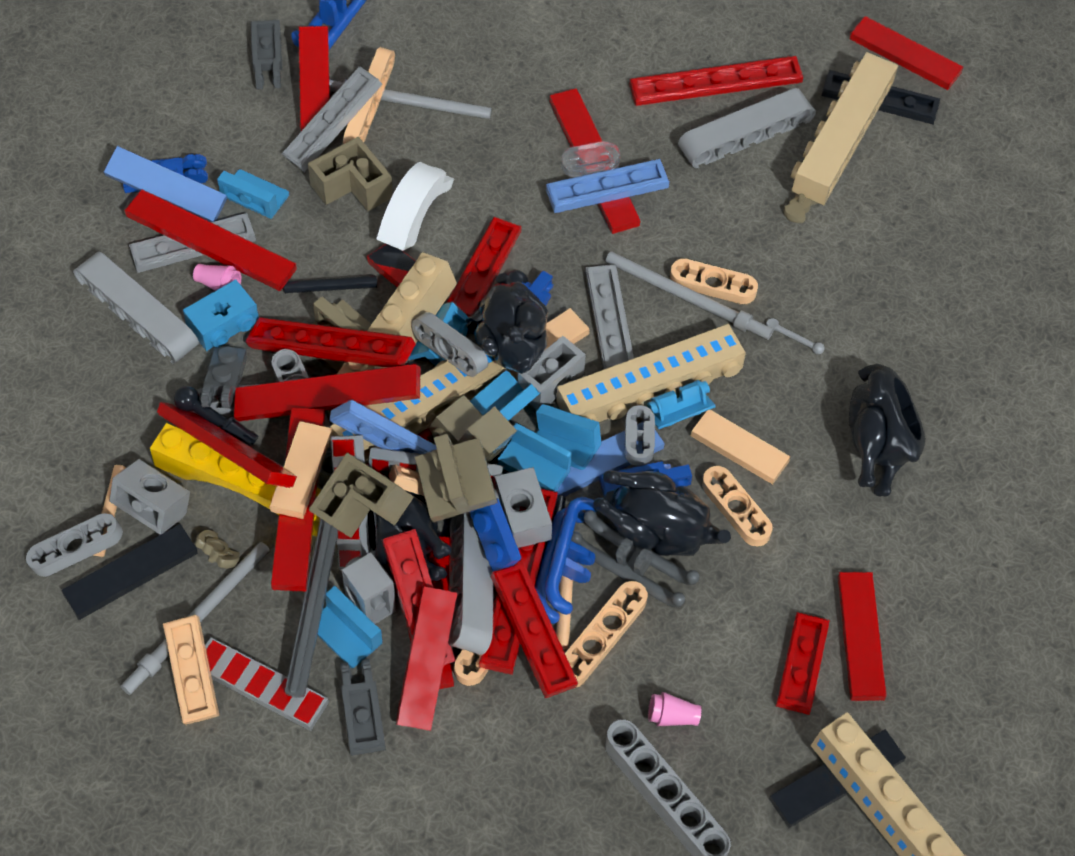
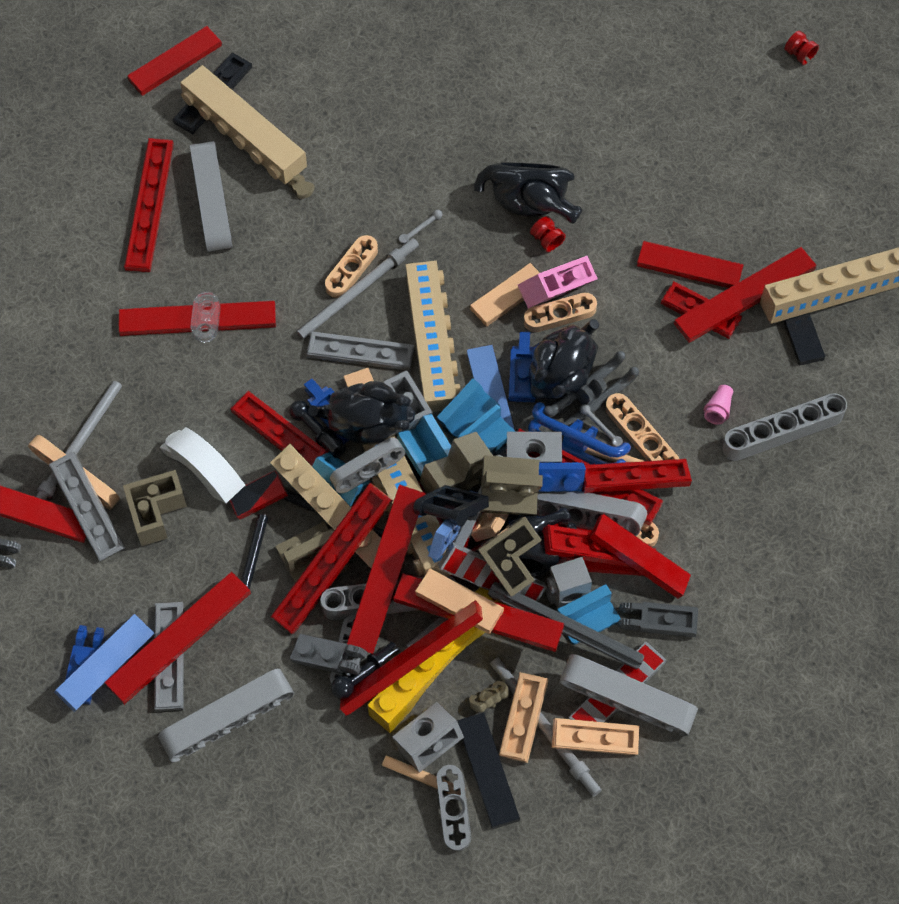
camera: 70 degrees left, 5 degrees up
(198, 588) = (523, 717): none -> light nougat tile
(215, 275) = (219, 640): bright pink cone -> none
(221, 315) = (258, 629): dark azure brick -> none
(246, 690) = (628, 695): none -> light grey beam
(252, 192) = (133, 593): dark azure panel -> none
(416, 426) = (451, 504): none -> black plate
(586, 608) = (616, 441): none -> light grey hinge
(607, 185) = (233, 314): medium blue tile -> none
(633, 435) = (483, 358): light grey beam -> none
(692, 402) = (463, 323): dark azure hinge -> none
(773, 488) = (557, 281): none -> bright pink slope
(835, 699) = (741, 295): none -> red tile
(836, 464) = (547, 233): none -> red wheel

